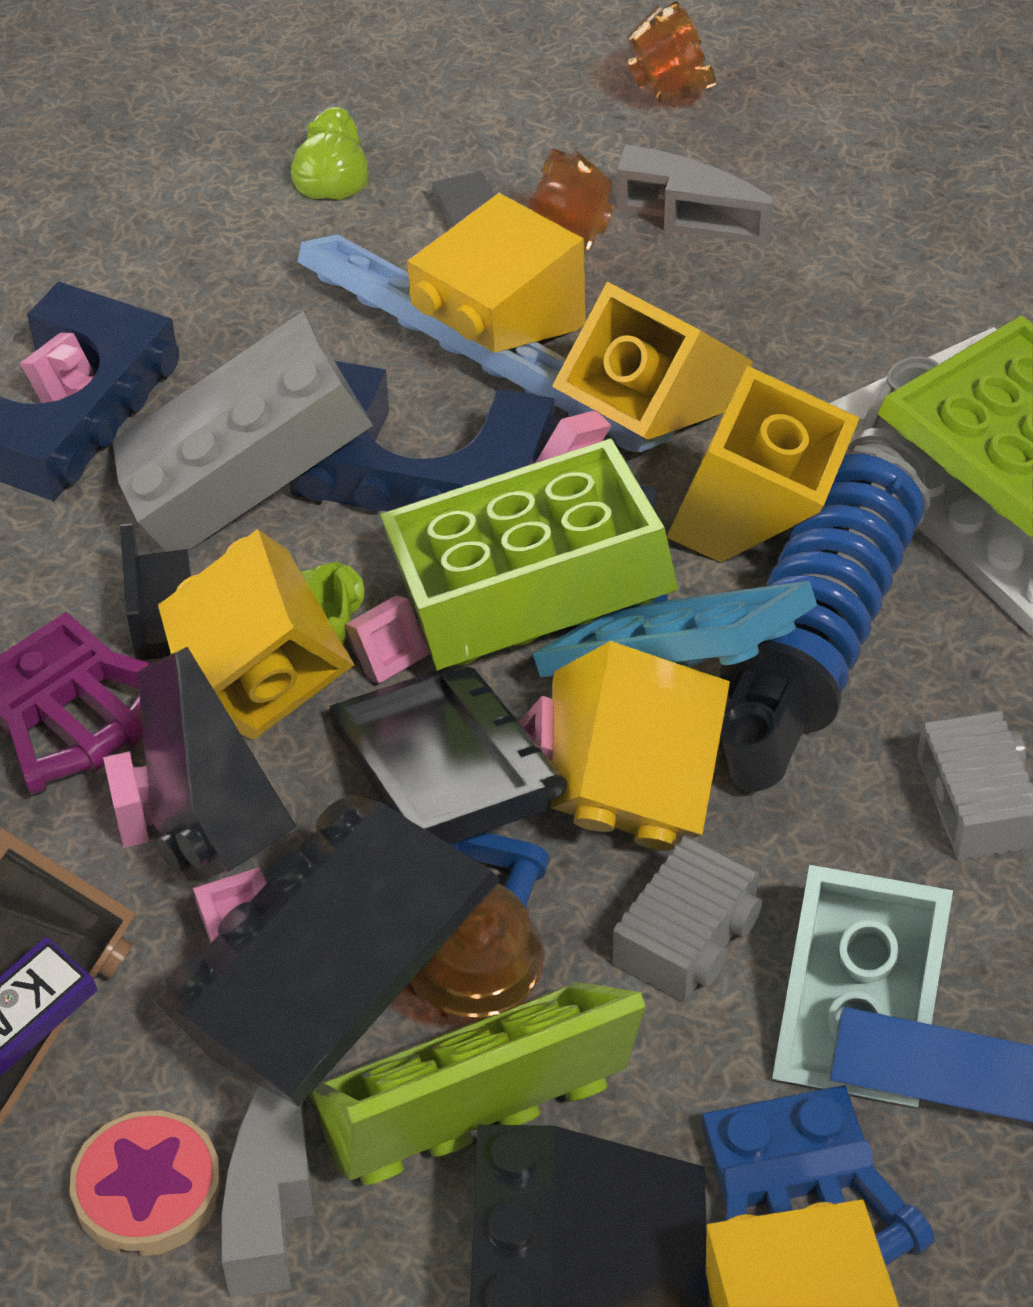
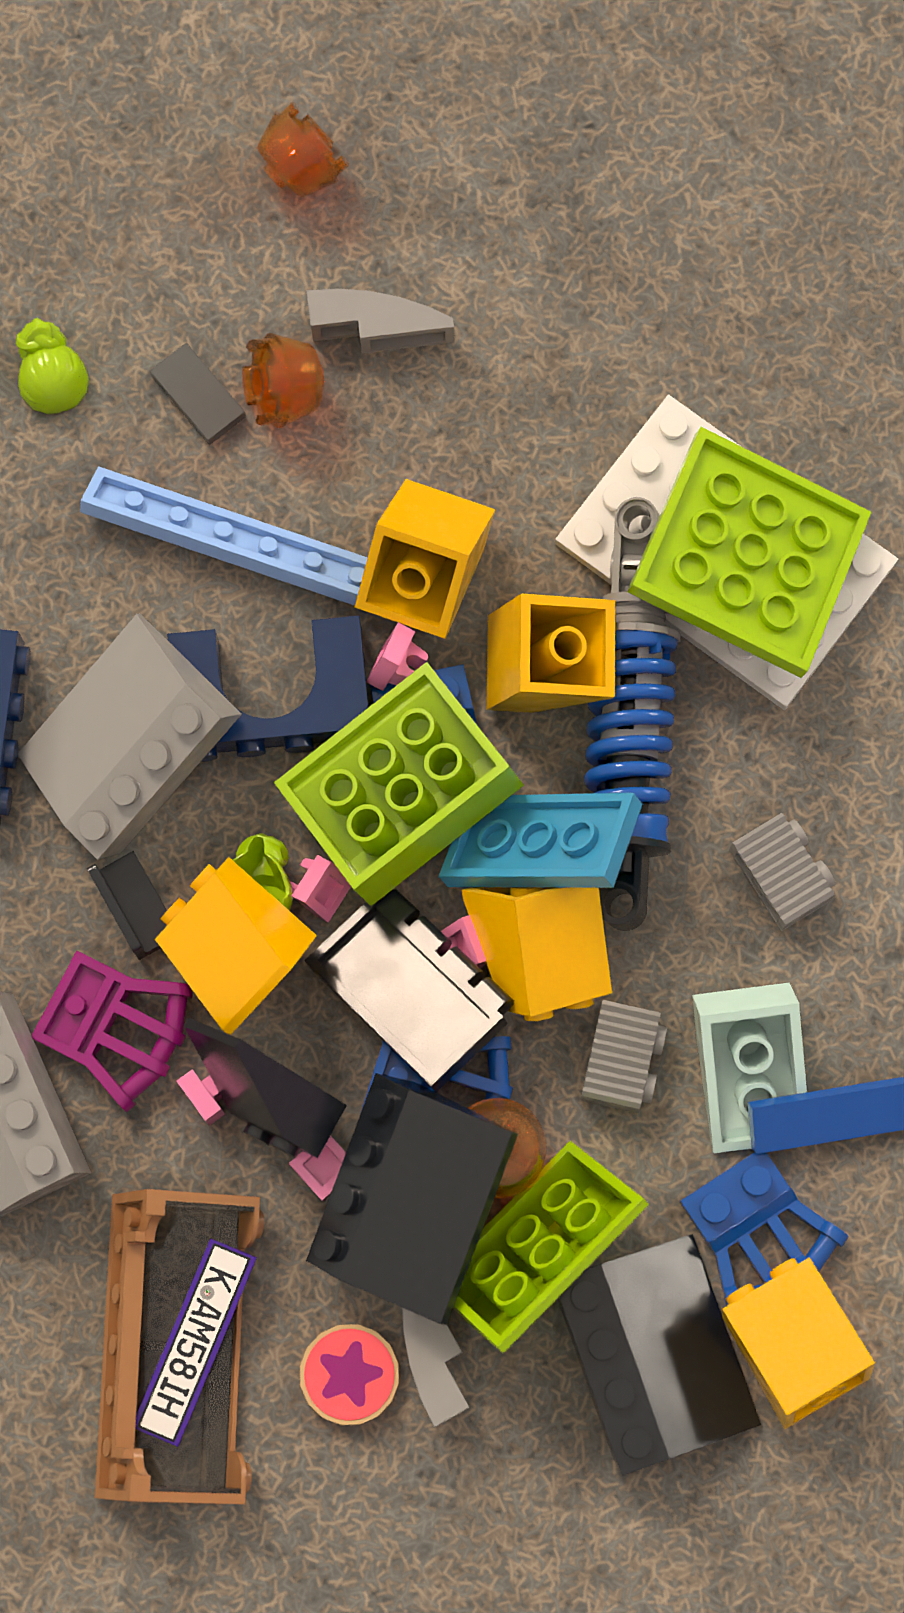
camera: 20 degrees left, 30 degrees up
(502, 277) = (268, 506): yellow slope -> none

